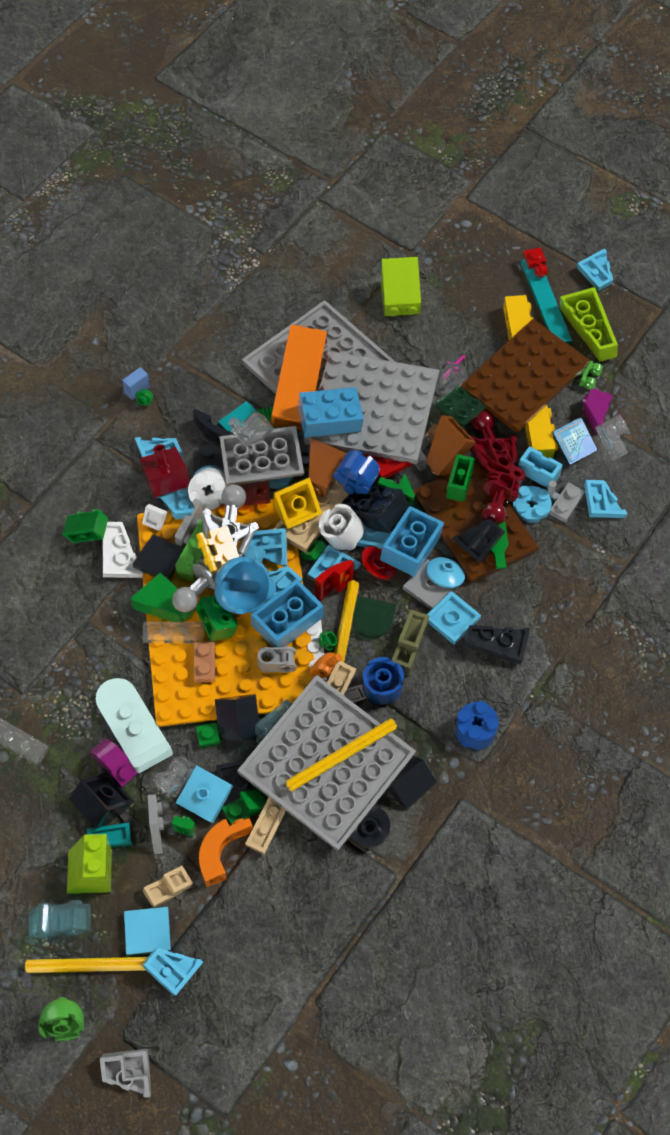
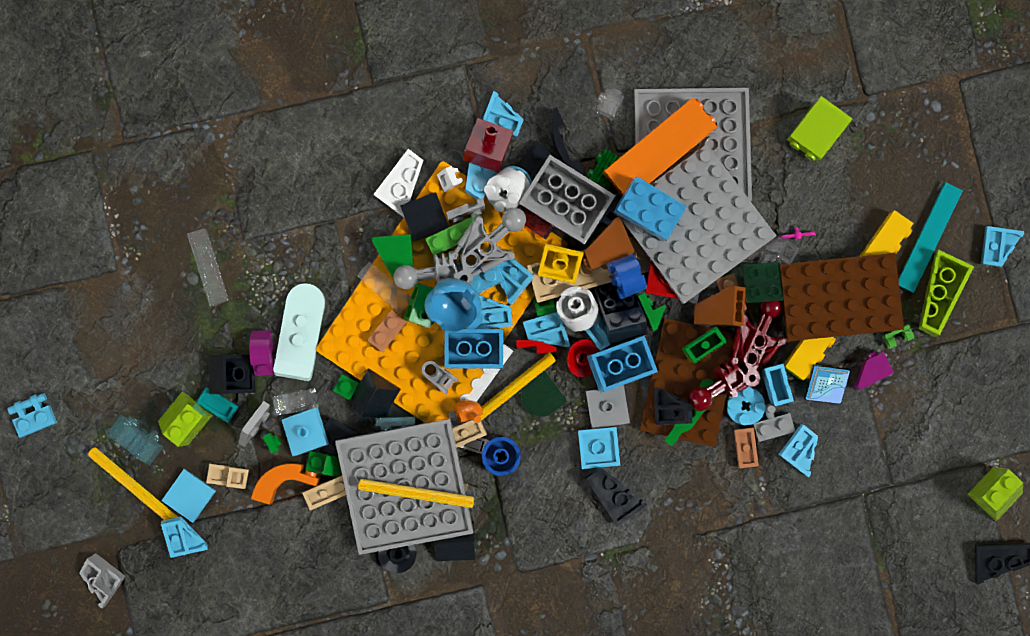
camera: 40 degrees right, 25 degrees up
(61, 1019) = (84, 509): bright green cylinder -> none
(85, 526) = (391, 143): green brick -> none
(135, 382) = (533, 42): medium blue piece -> none
(144, 397) = (530, 60): green plate -> none
(222, 545) = (466, 262): plate -> none
(232, 382) = (609, 103): none -> clear brick
(241, 413) = (587, 139): teal tile -> none
(252, 430) = (574, 173): clear brick -> none
(327, 640) = (491, 388): green plate -> none
(410, 640) = (549, 440): olive slope -> none
(445, 572) = (618, 408): medium azure dish -> none
(468, 723) = (543, 556): blue brick -> none
(536, 259) = (956, 193): red plate -> none
(561, 530) = (746, 448): none -> nougat plate
(610, 436) = (858, 403): clear plate -> none

